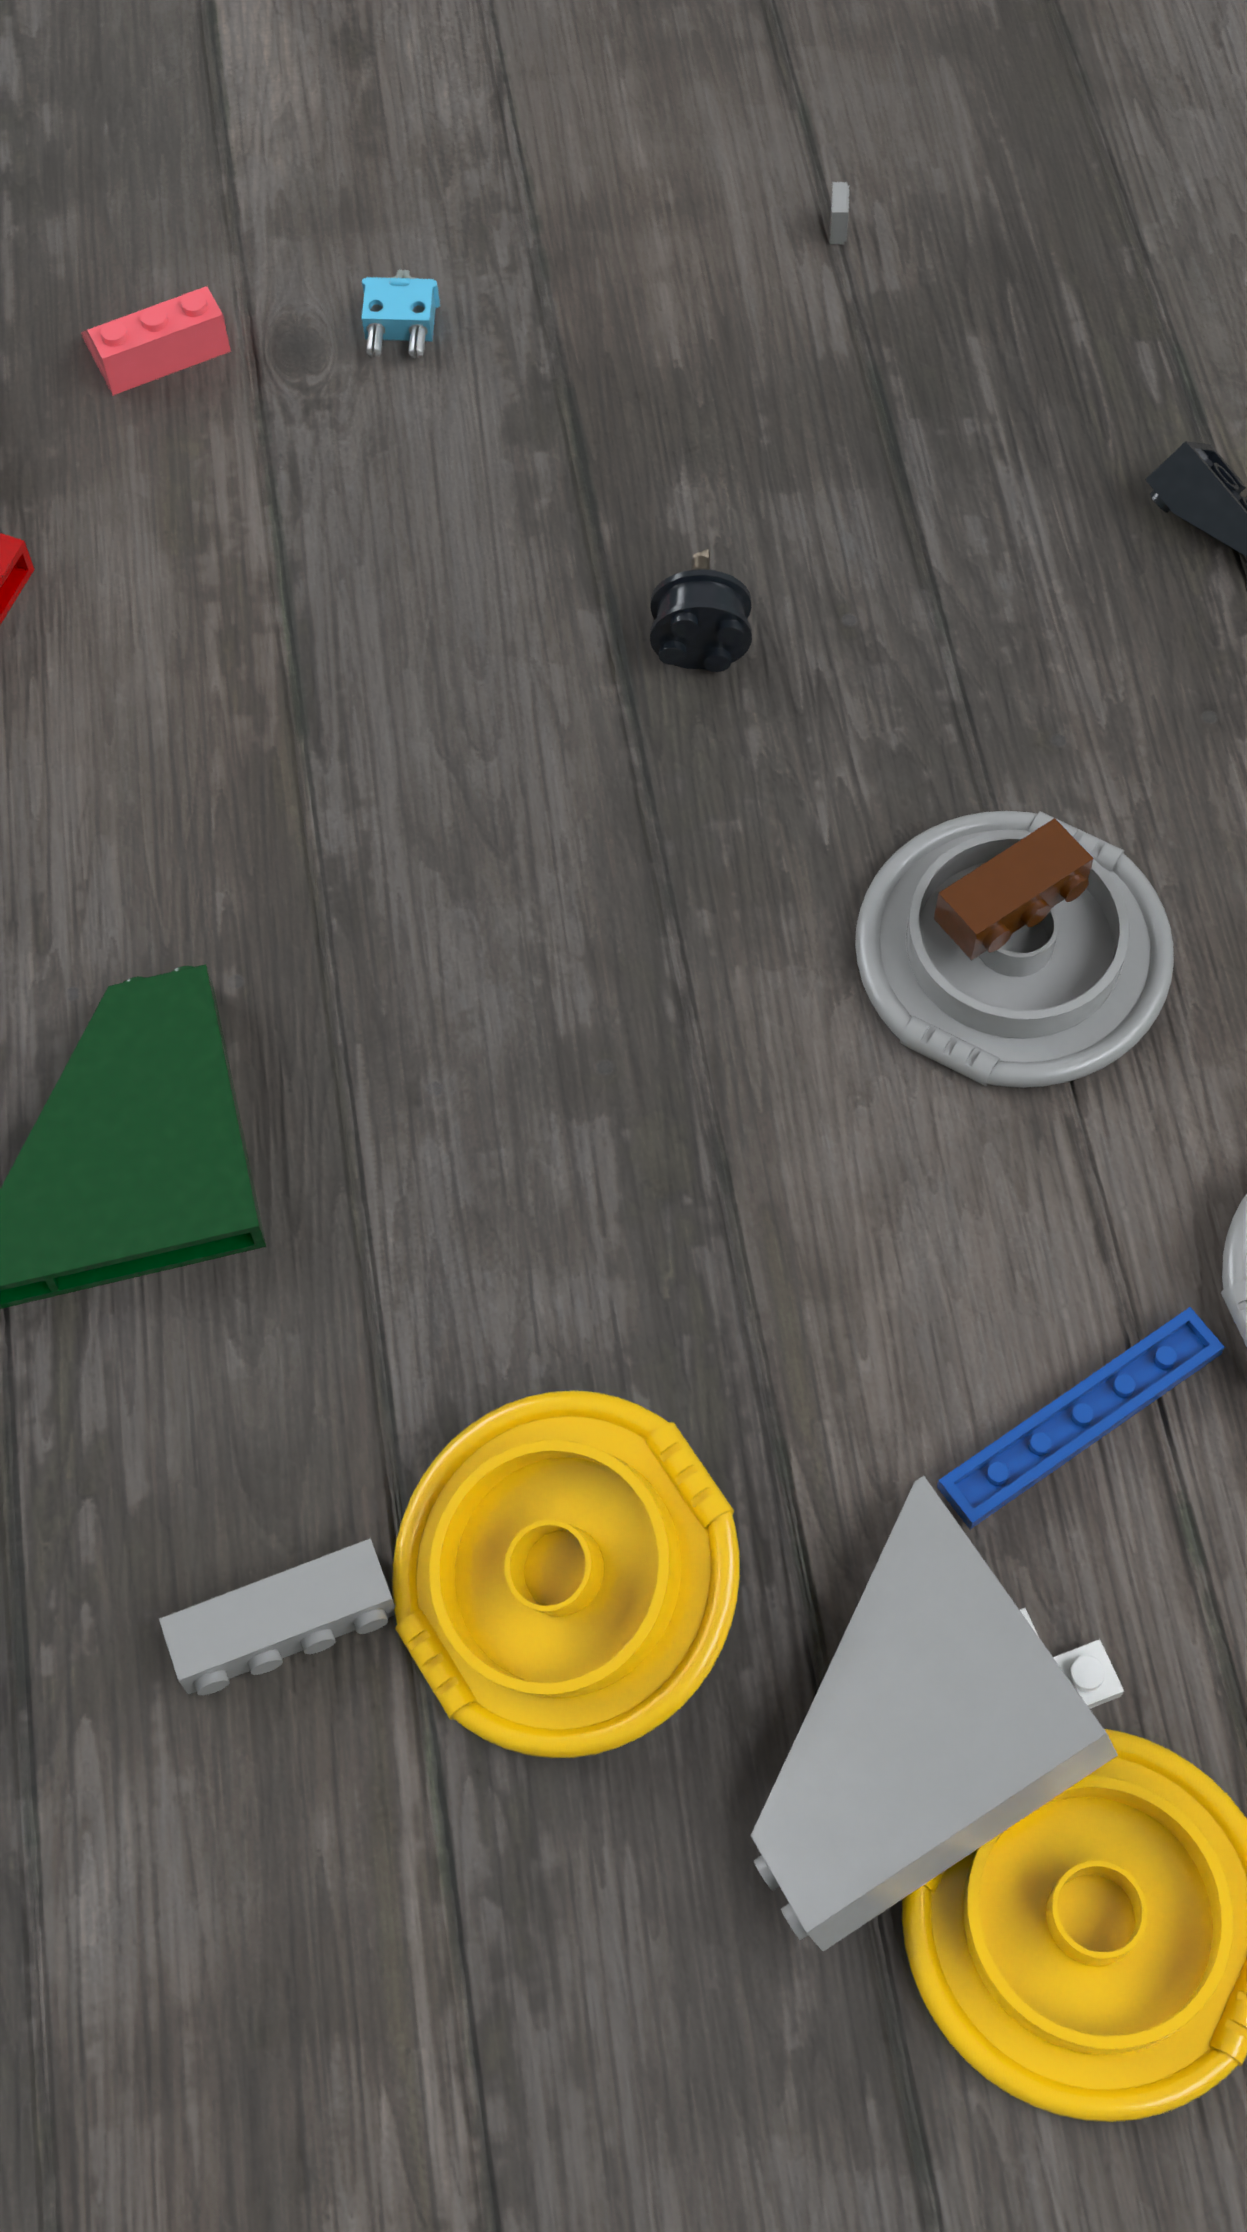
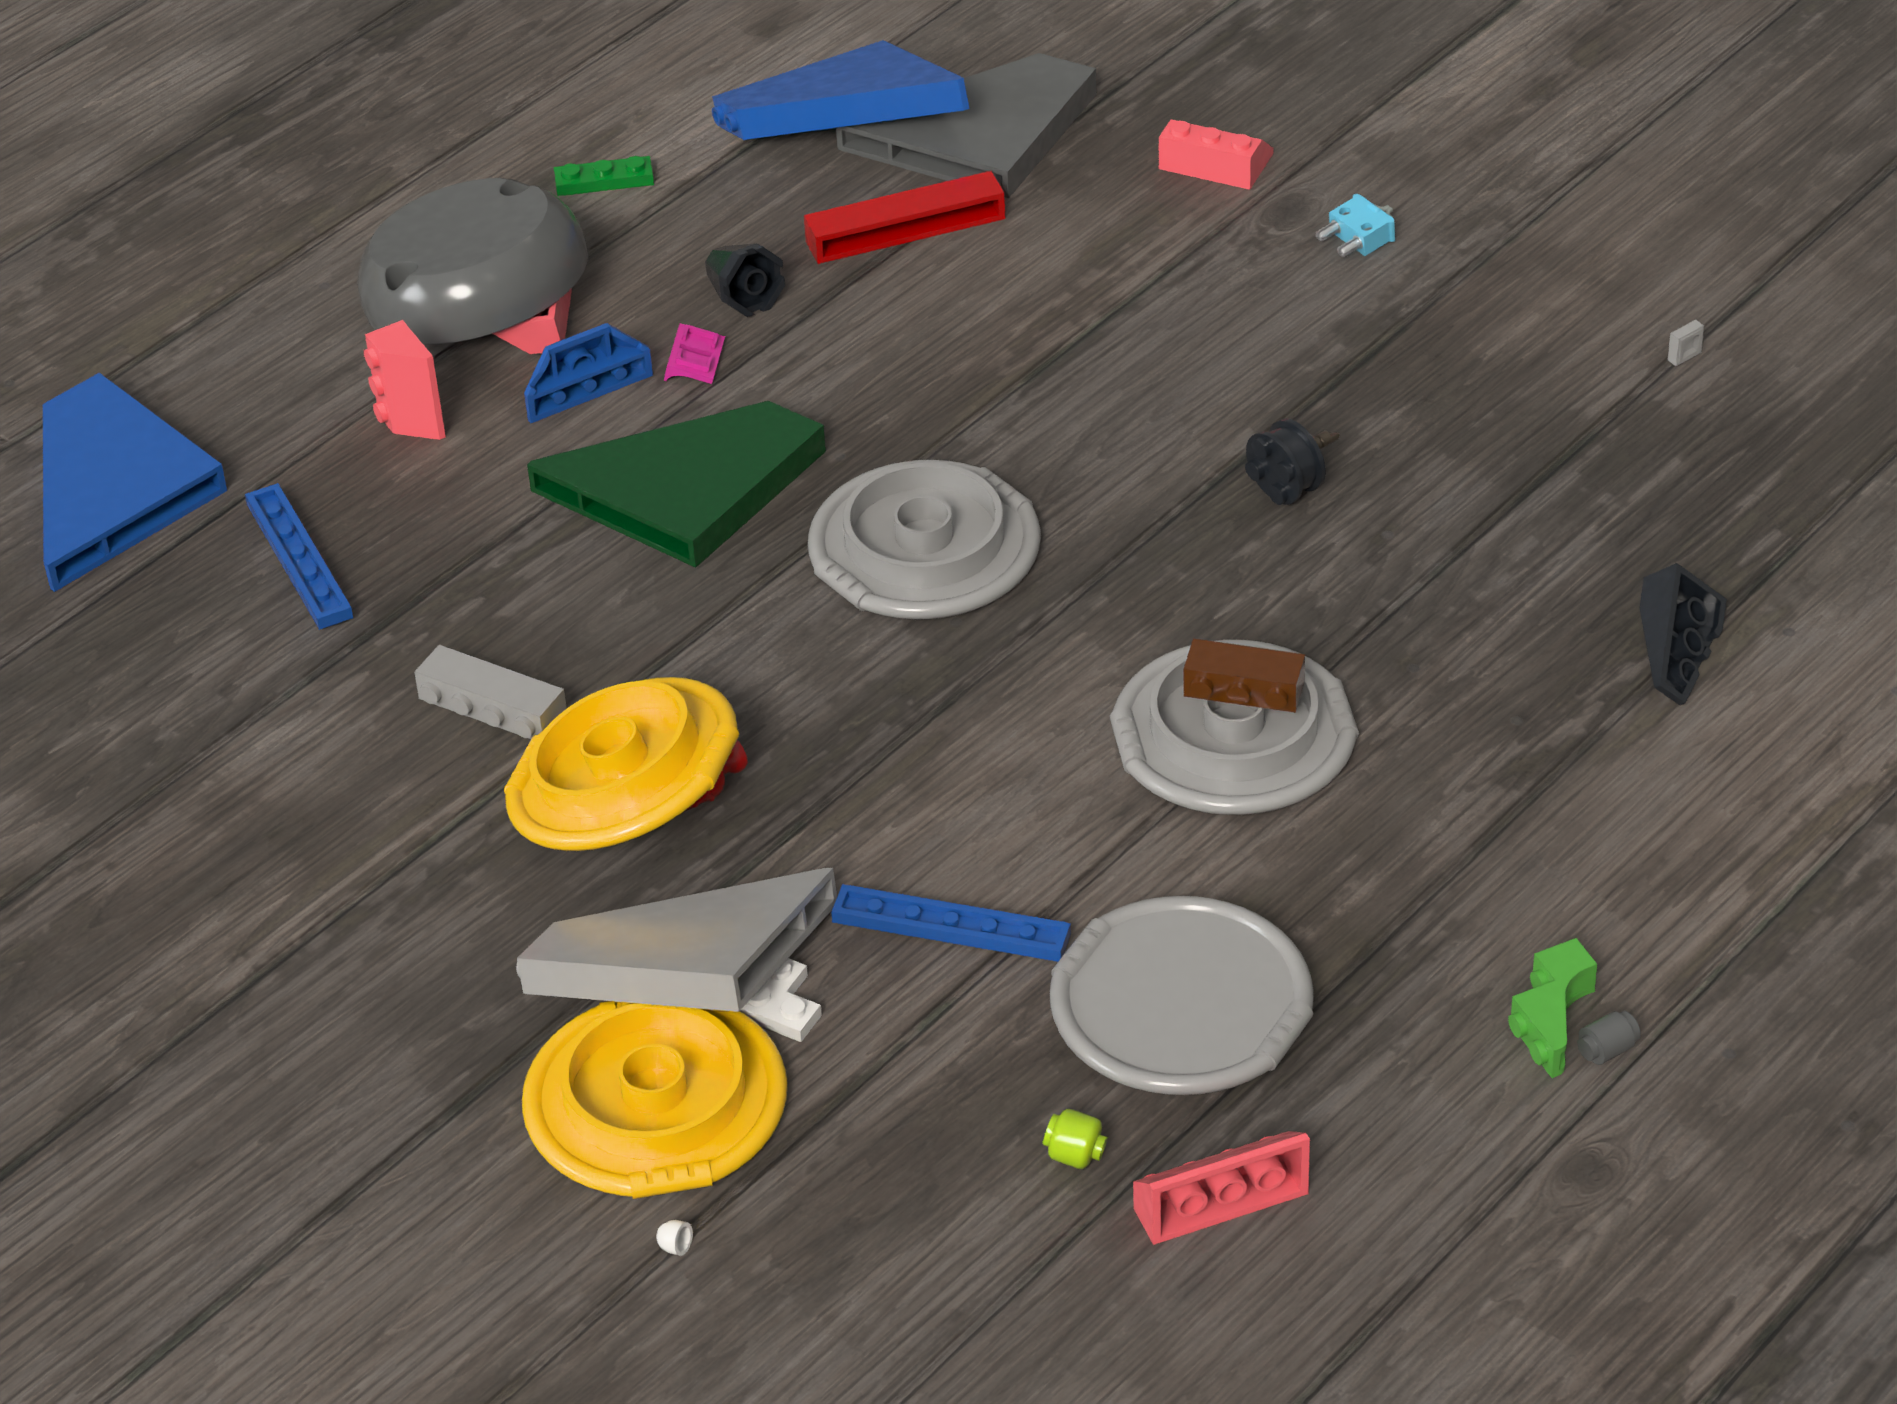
camera: 50 degrees right, 20 degrees down
(459, 1005) = (924, 539): none -> light grey piece

